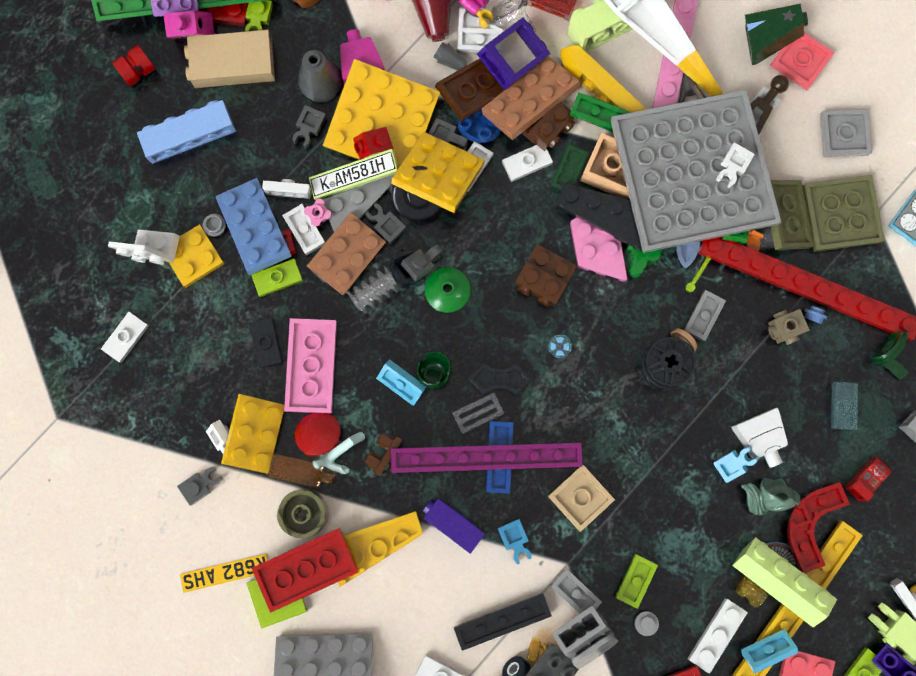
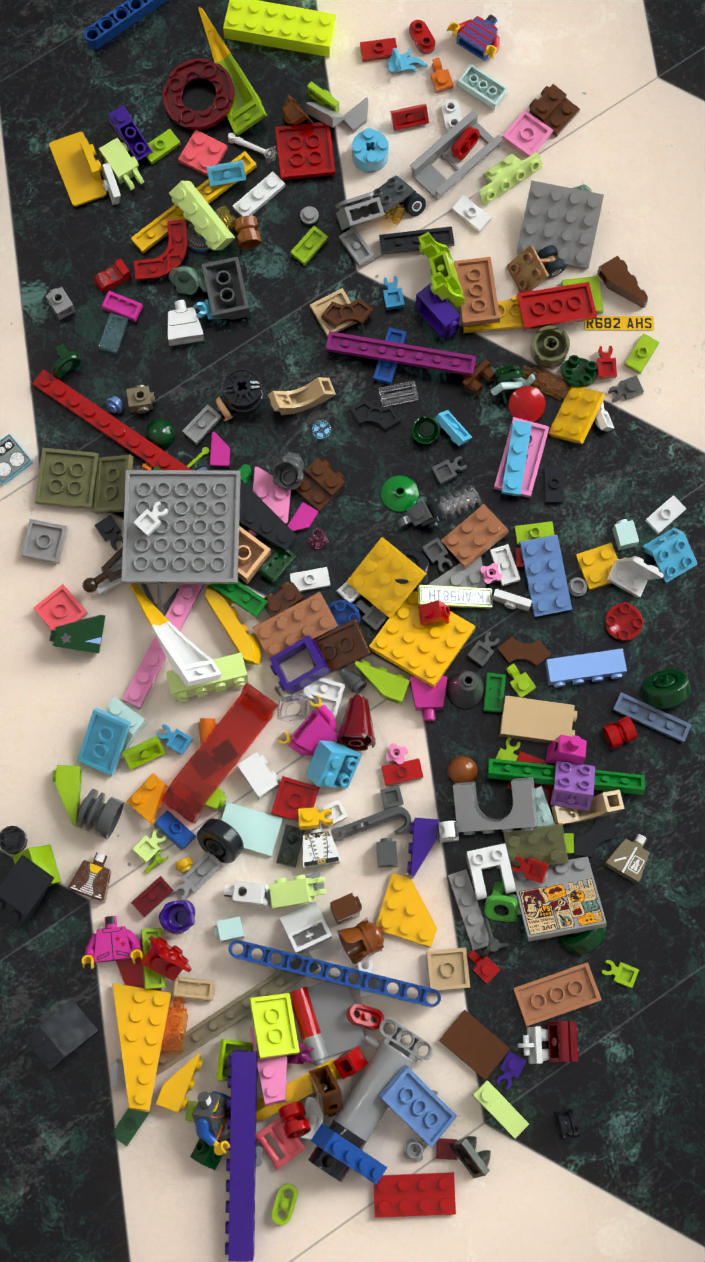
camera: 170 degrees left, 5 degrees down
(87, 126) = (666, 689): none -> dark green wheel
(101, 93) = (652, 717): none -> sand blue plate
(111, 290) = (671, 553): none -> medium azure bracket
(152, 196) = (624, 621): none -> red dish
(167, 298) = (625, 534): none -> light aqua brick
(188, 537) = (641, 353): none -> lime plate
(229, 507) = (606, 366): none -> red plate
(234, 629) = (619, 280): none -> reddish brown slope
(254, 137) = (533, 652): none -> reddish brown tile
(259, 100) = (521, 683): none -> lime plate
(261, 492) = (579, 371): none -> dark green dish
(286, 80) = (494, 693): none -> green plate
(315, 359) = (516, 458): none -> medium azure plate
(336, 462) = (501, 376): none -> dark green piece
(349, 611) = (533, 268): none -> medium nougat plate
(397, 327) = (446, 471): none -> dark grey plate
(410, 566) = (479, 291): none -> nougat plate
(412, 61) = (388, 685): none -> lime slope
(449, 561) = (443, 271): none -> lime bracket
(527, 214) = (318, 542): none -> clear pink cone
(554, 231) = (303, 518): none -> dark pink tile
(555, 502) = (355, 312): none -> reddish brown tile
(586, 277) = (288, 471): none -> dark grey hair
(595, 374) = (302, 398): none -> tan arch
(673, 288) = (219, 452): none -> dark pink tile
(718, 577) = (247, 231): none -> dark orange wheel
(724, 492) = (226, 289): none -> dark grey slope
(750, 294) = (160, 433): none -> dark green hair
(776, 164) = (108, 530): none -> black plate
(844, 443) = (122, 306): none -> dark pink plate

